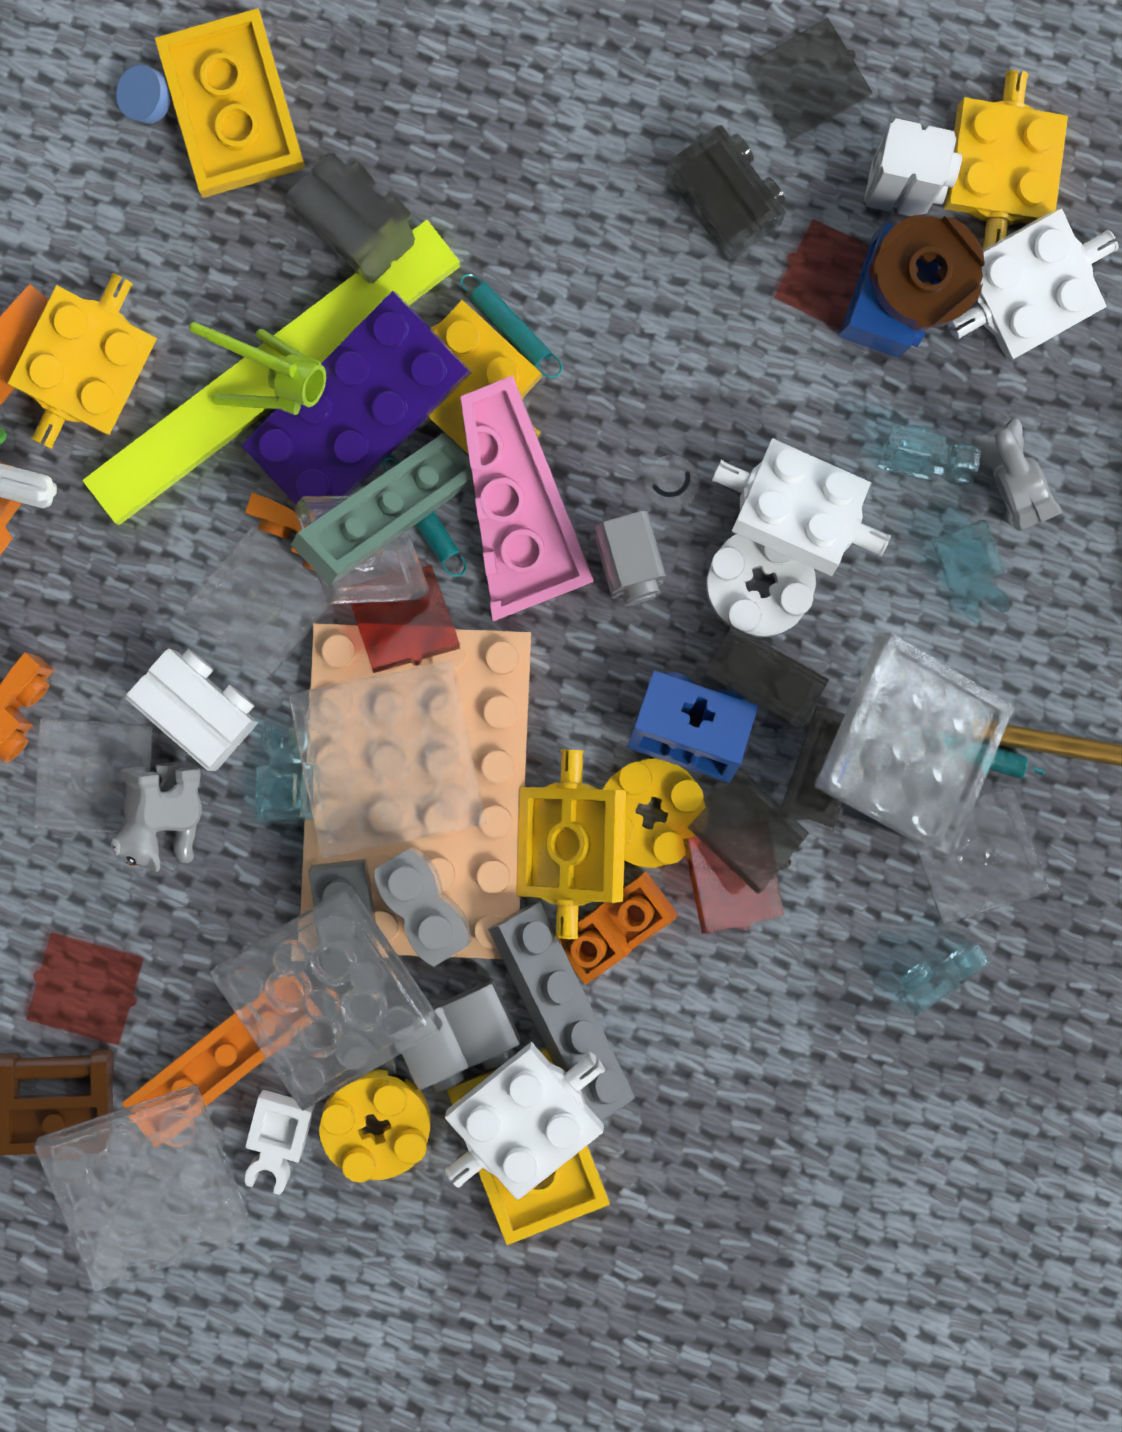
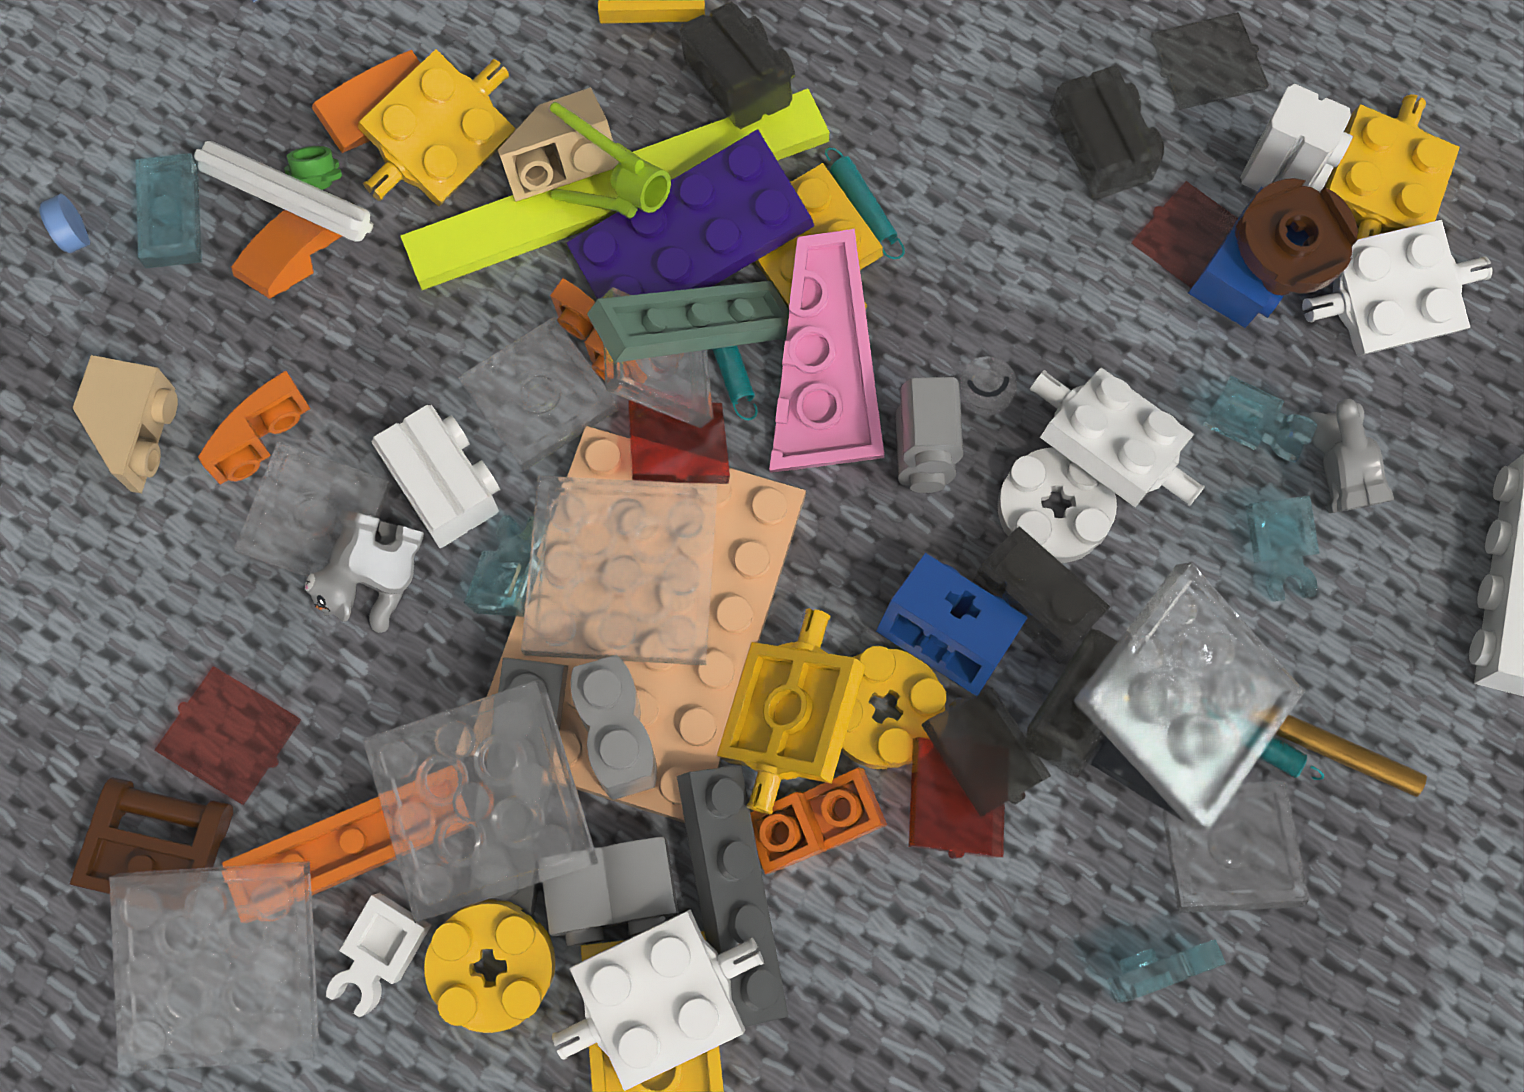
camera: 15 degrees right, 15 degrees down
(192, 366) = (552, 154): none -> tan slope

